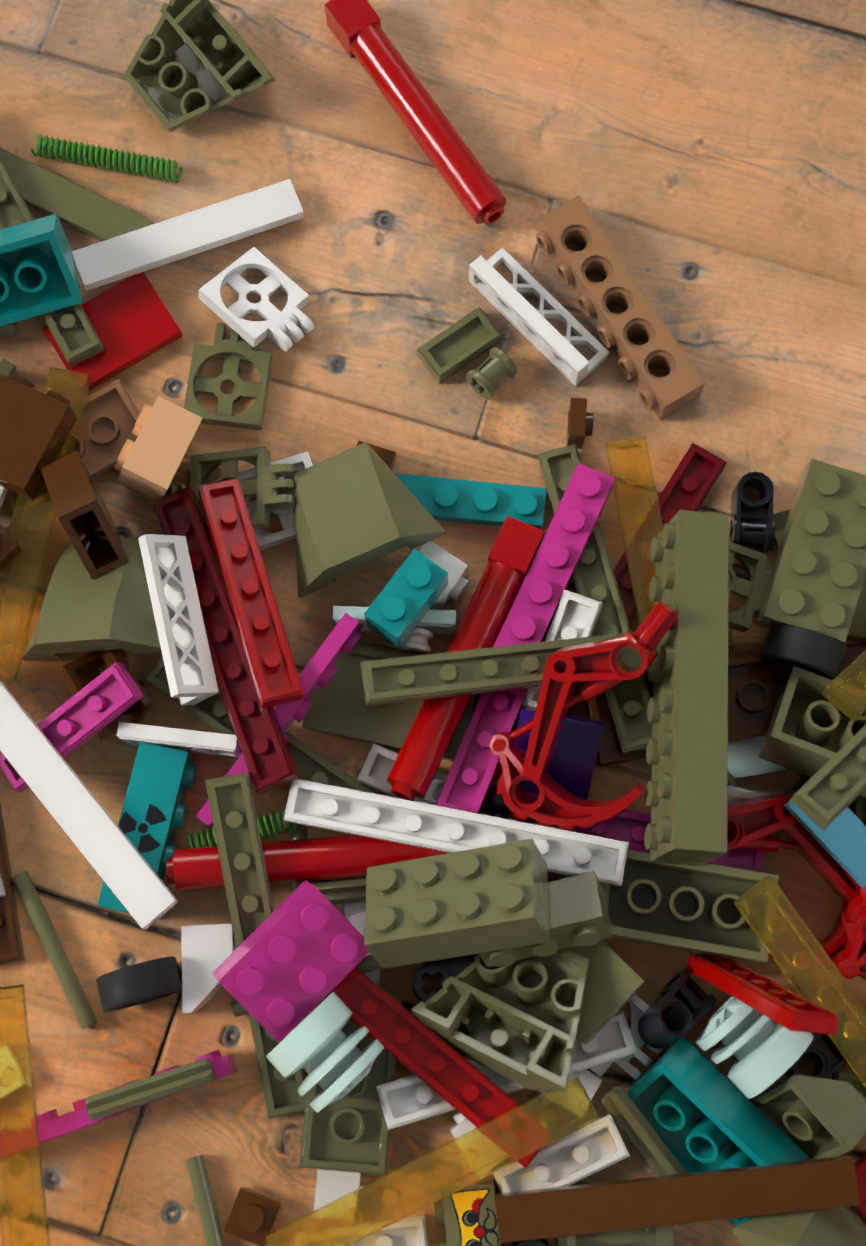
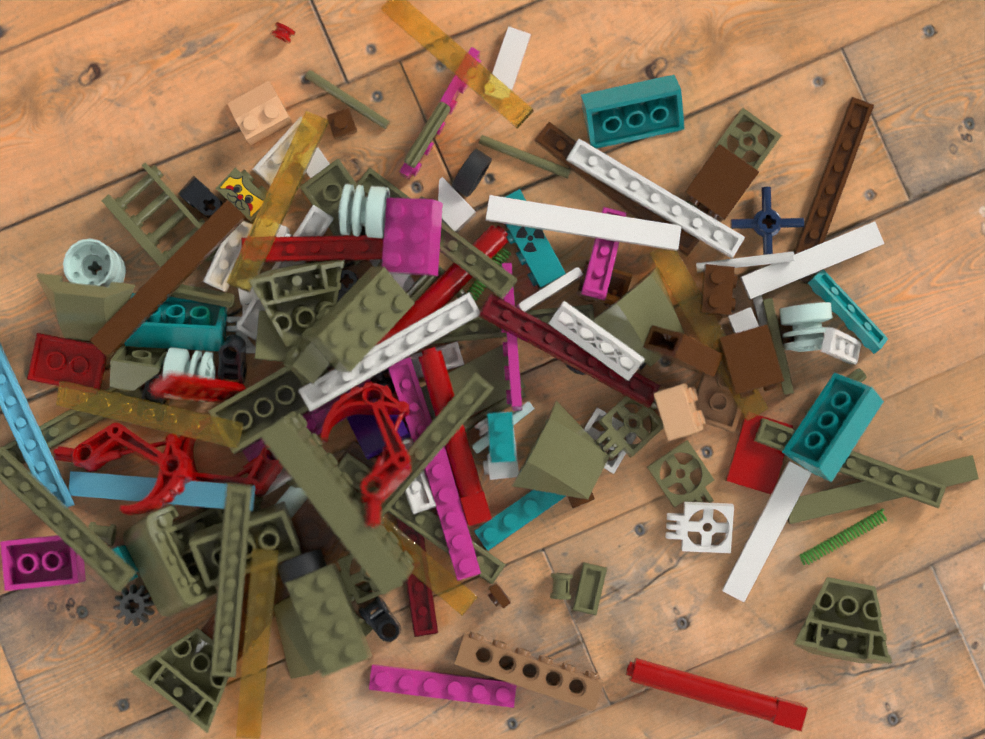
camera: 140 degrees right, 10 degrees up
(250, 594) = (575, 380): red tile -> none
(532, 322) = (568, 628): white fence -> none
(742, 380) = (442, 685): none -> dark pink plate

